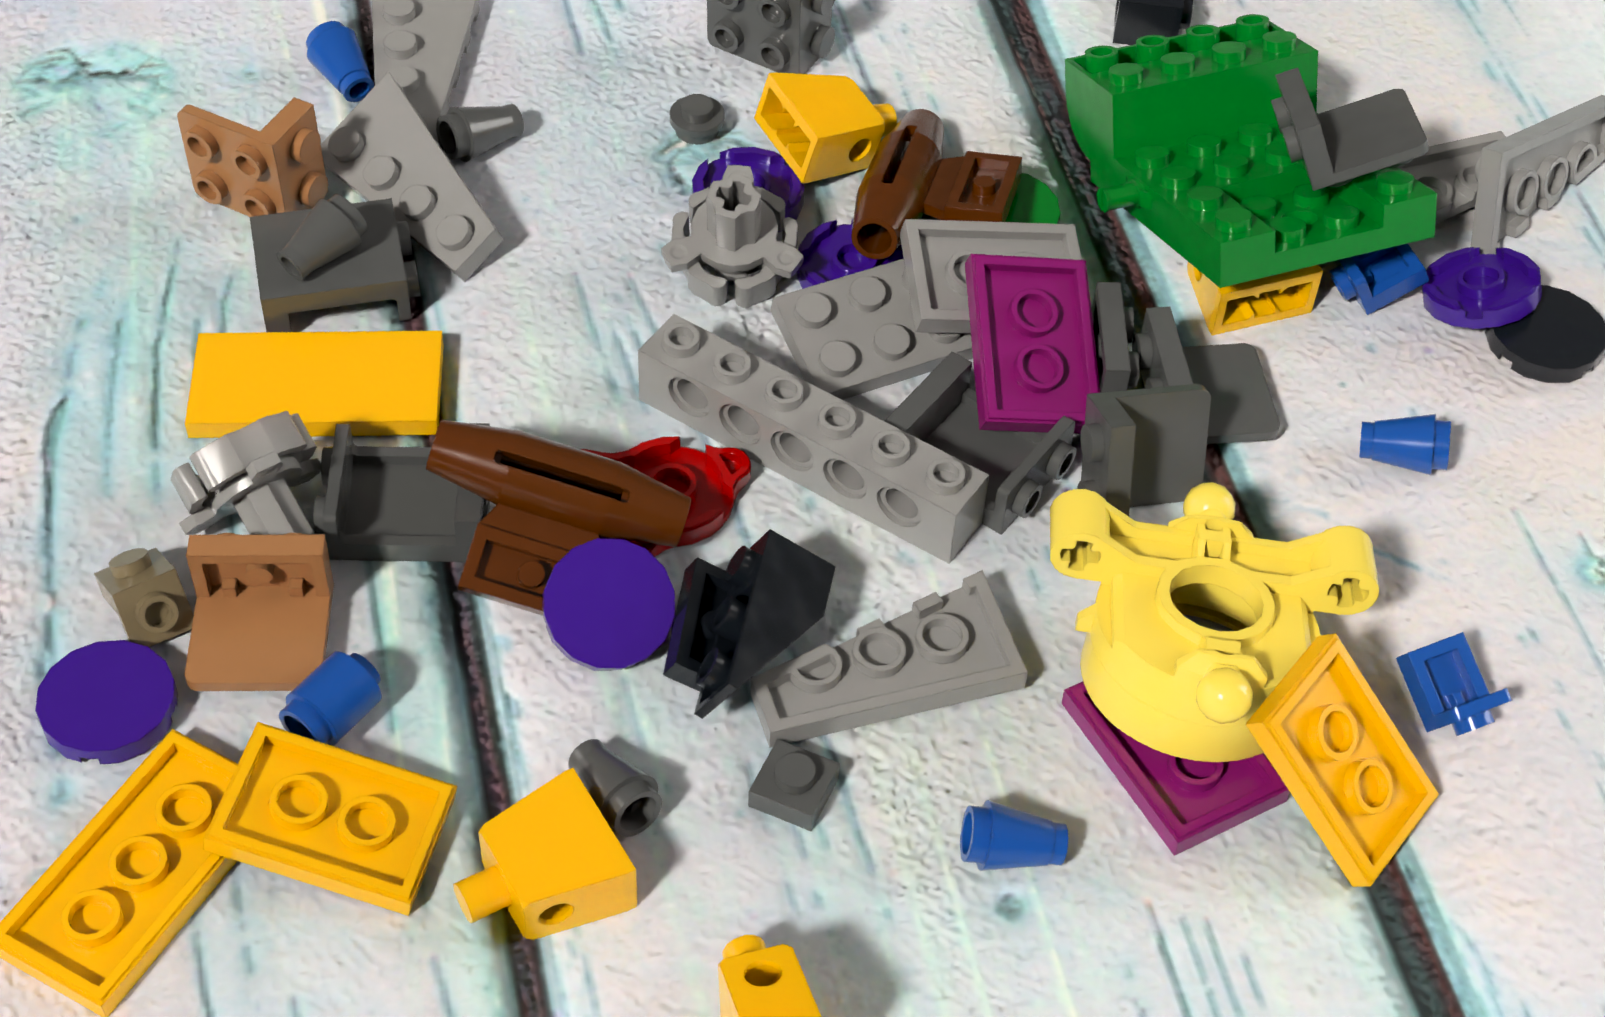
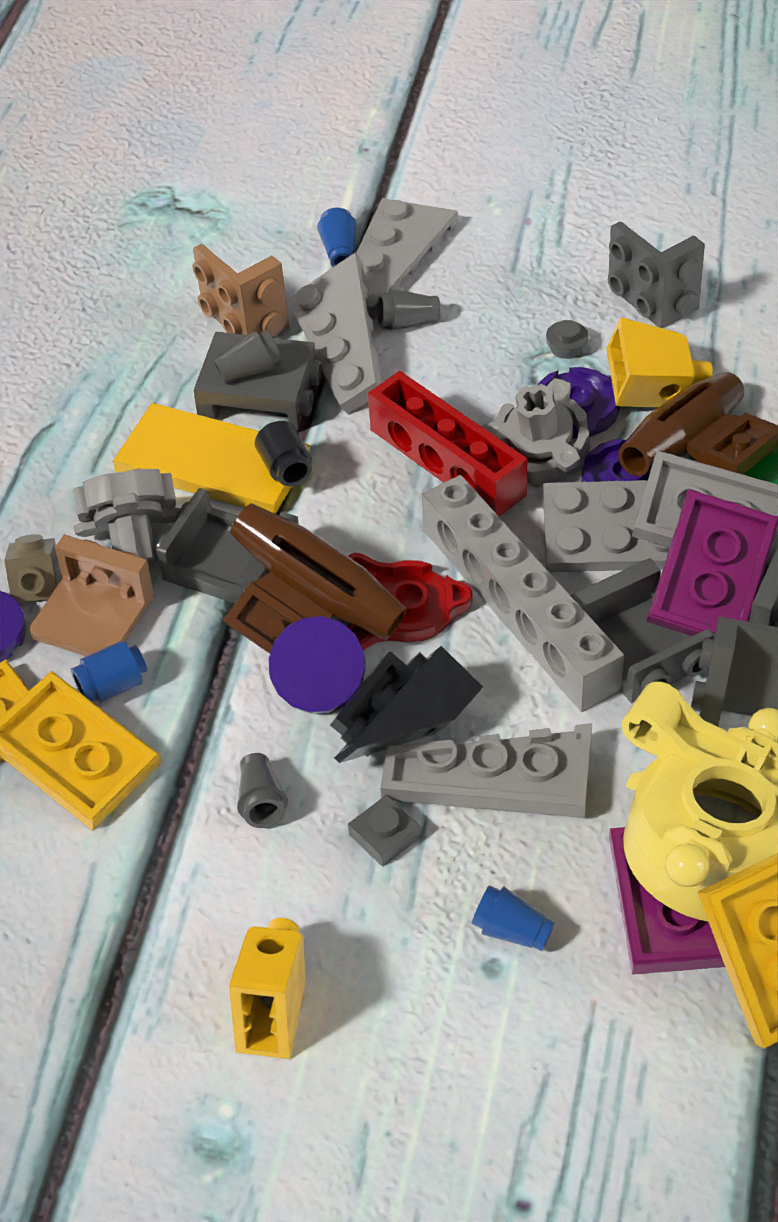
camera: 30 degrees right, 0 degrees up
(425, 348) = (284, 453): none -> black brick
(550, 863) = (189, 826): yellow torso -> none
(622, 277) = (447, 441): none -> red brick

